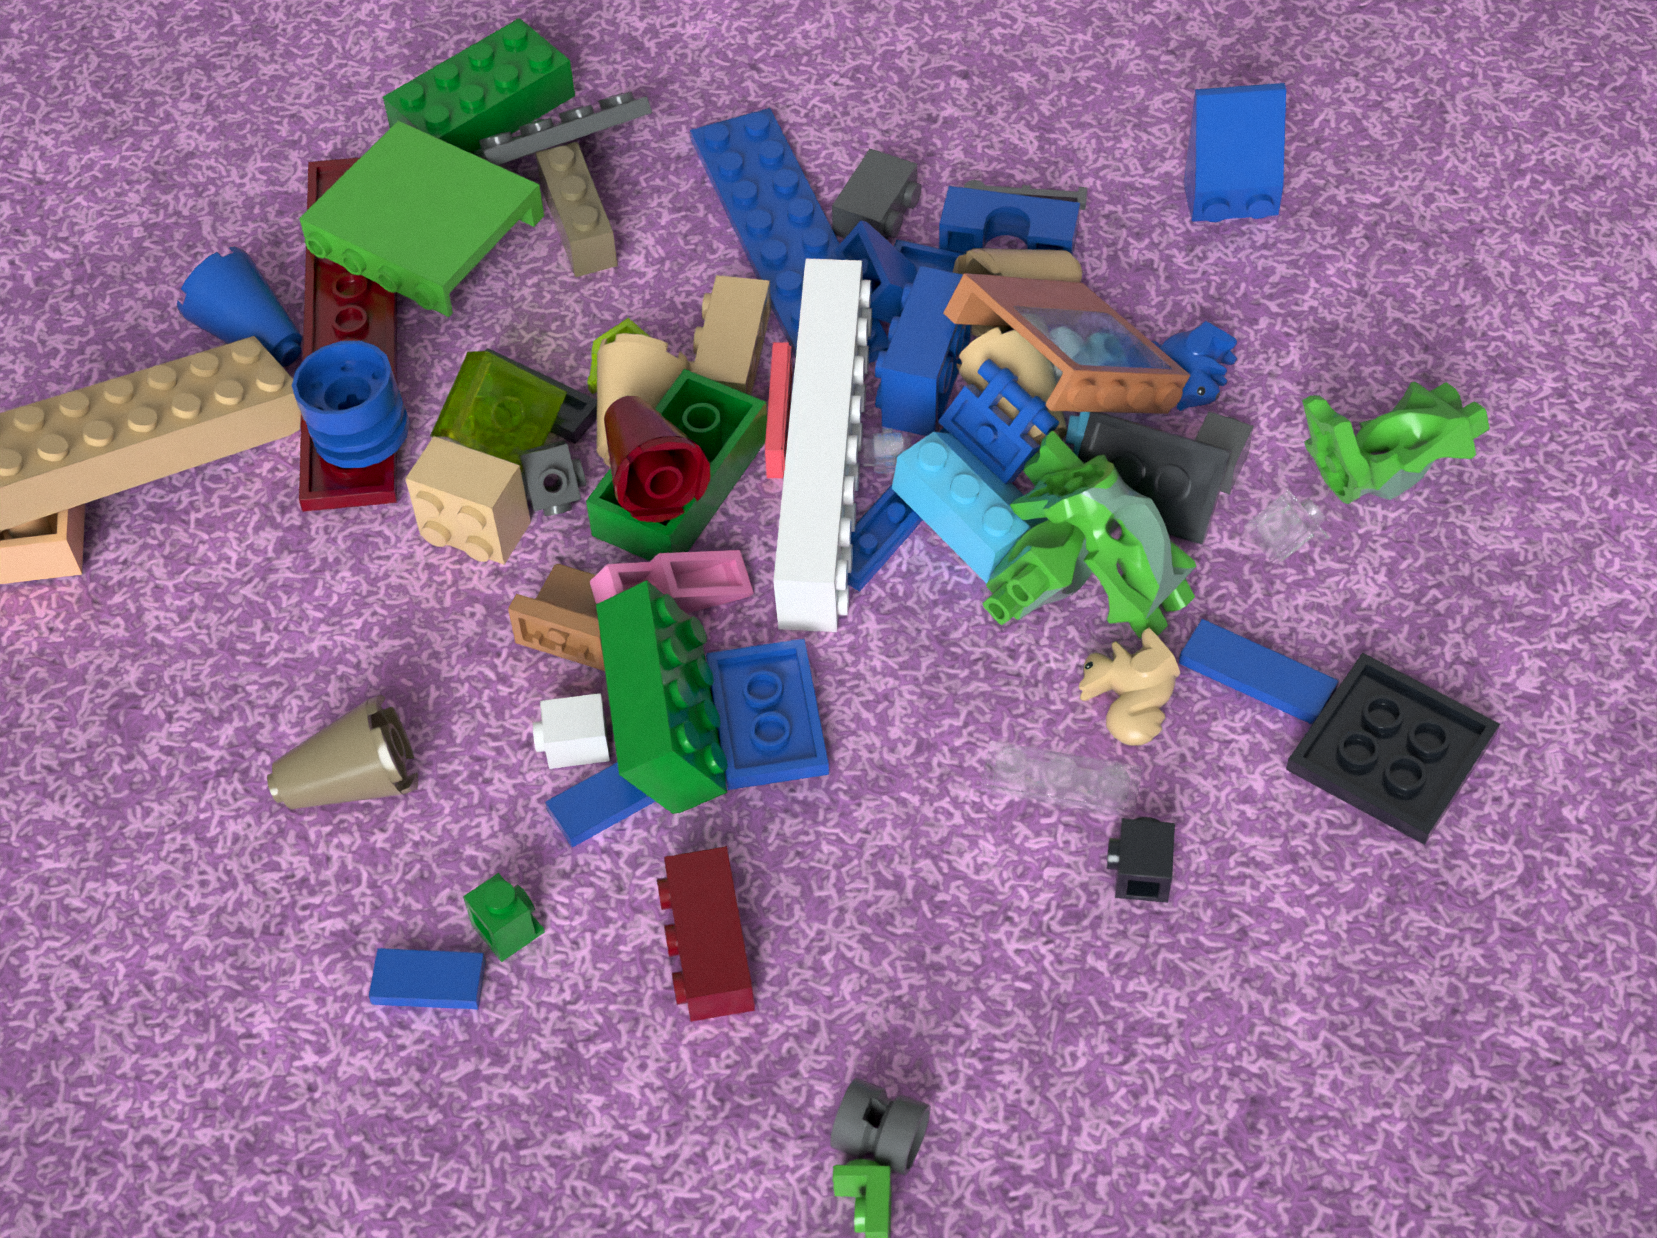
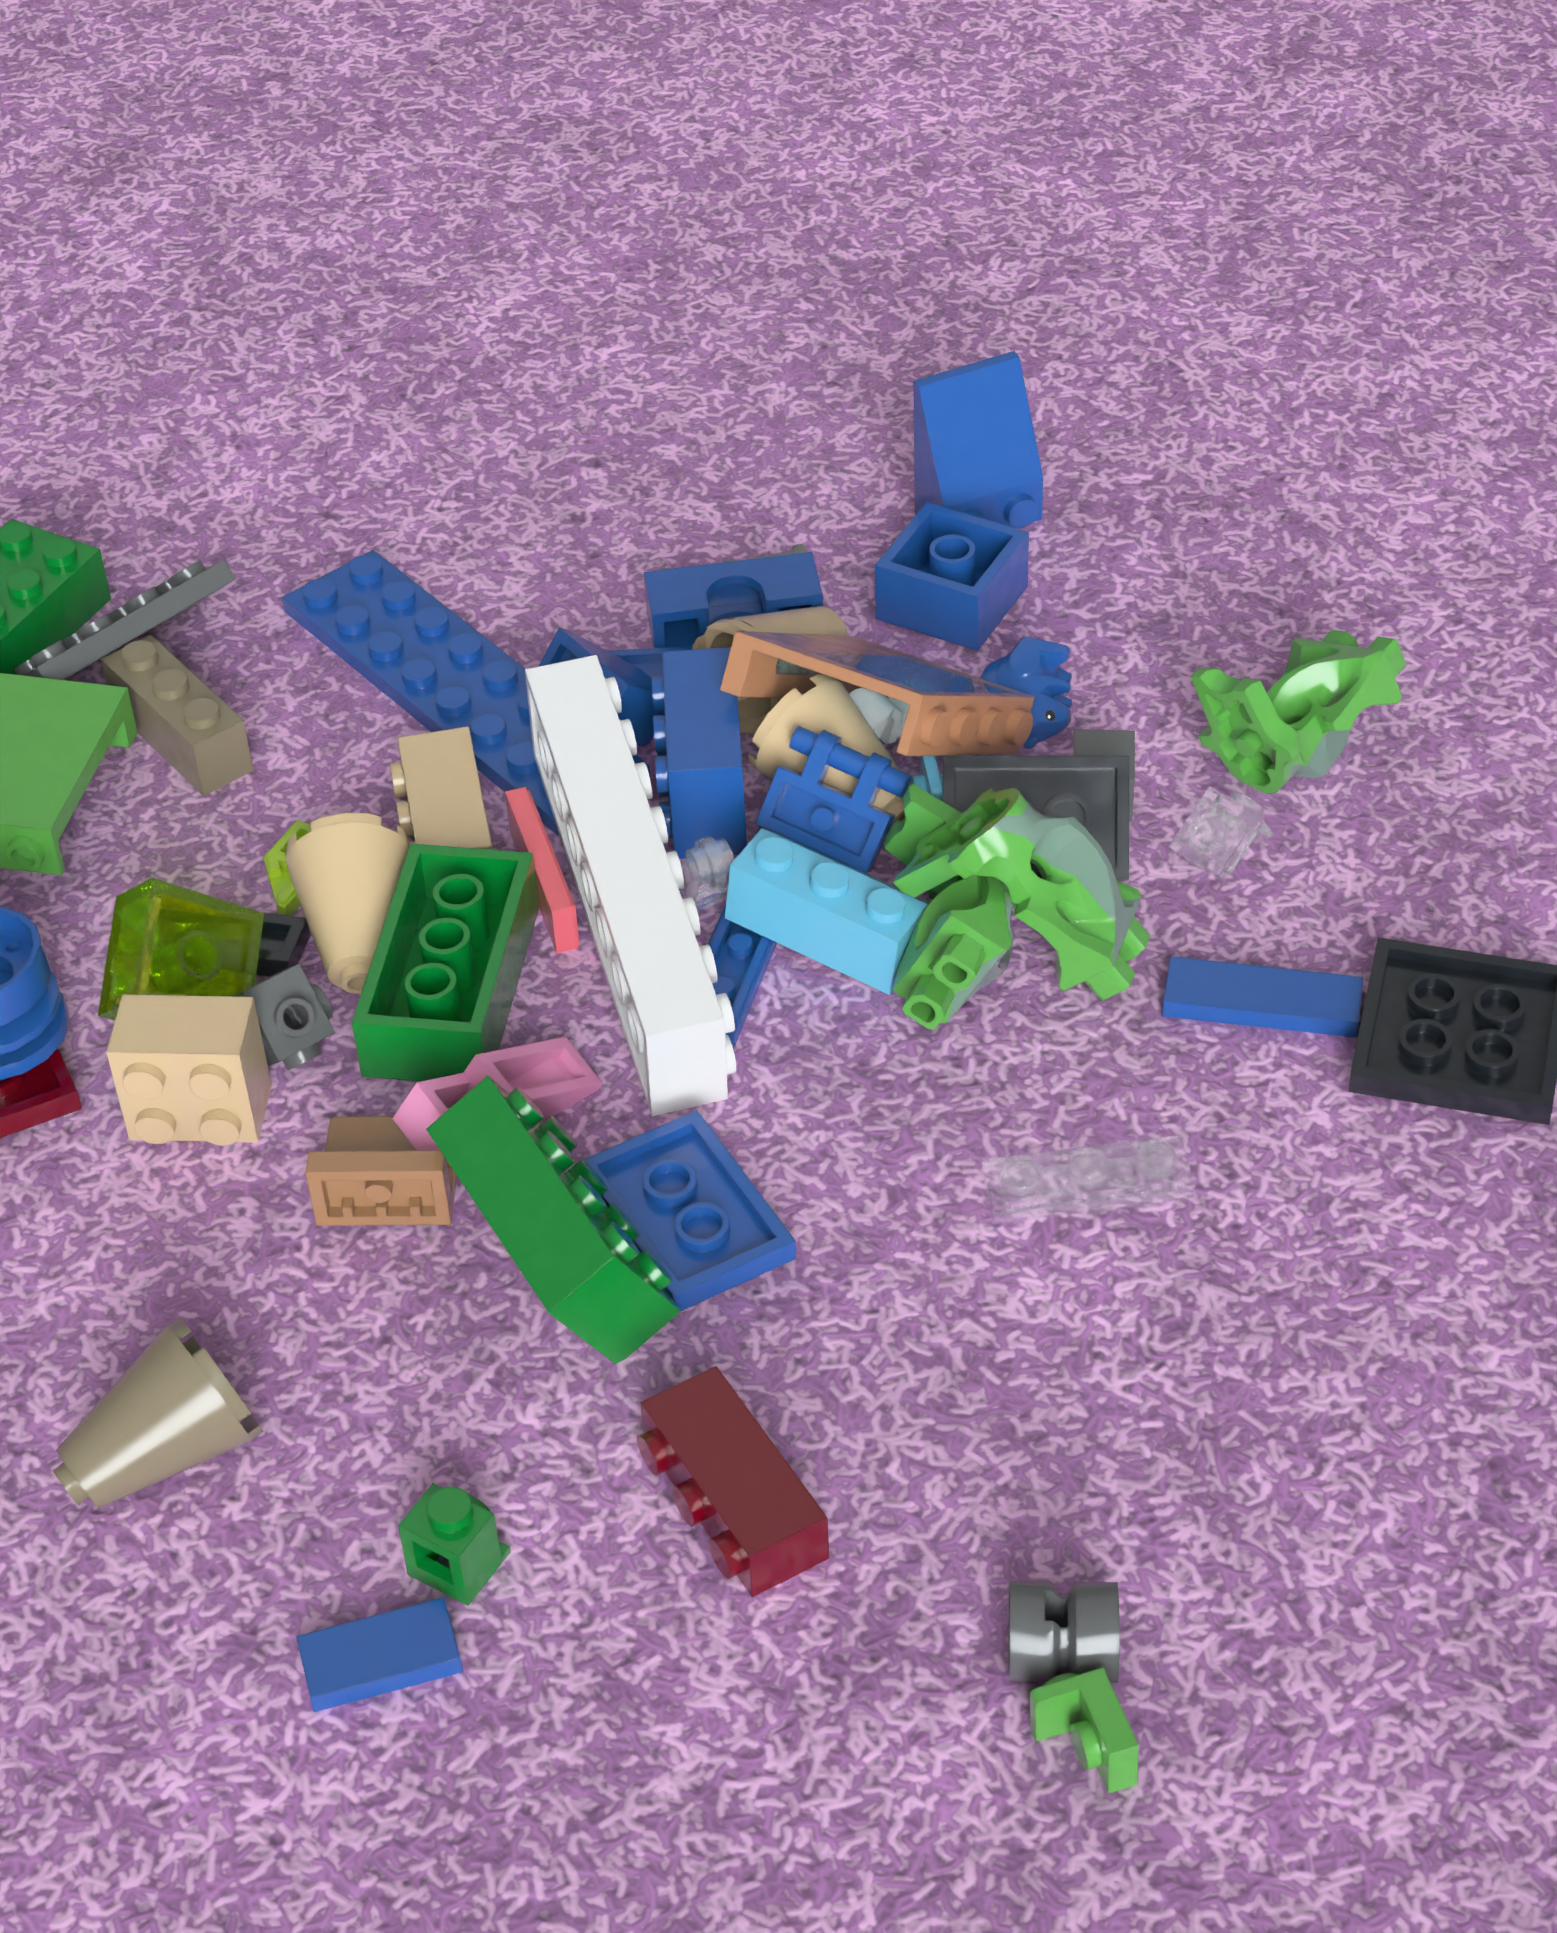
camera: 20 degrees left, 10 degrees down
(572, 731) = (445, 1300): white brick -> none
(595, 805) = (516, 1374): blue tile -> none
(652, 461) = (429, 943): dark red cone -> none
(877, 194) = (551, 597): dark grey brick -> none
(1141, 681) = (1132, 1042): tan animal -> none
(1142, 859) = (1234, 1234): black brick -> none
(1178, 251) = (952, 575): none -> blue brick

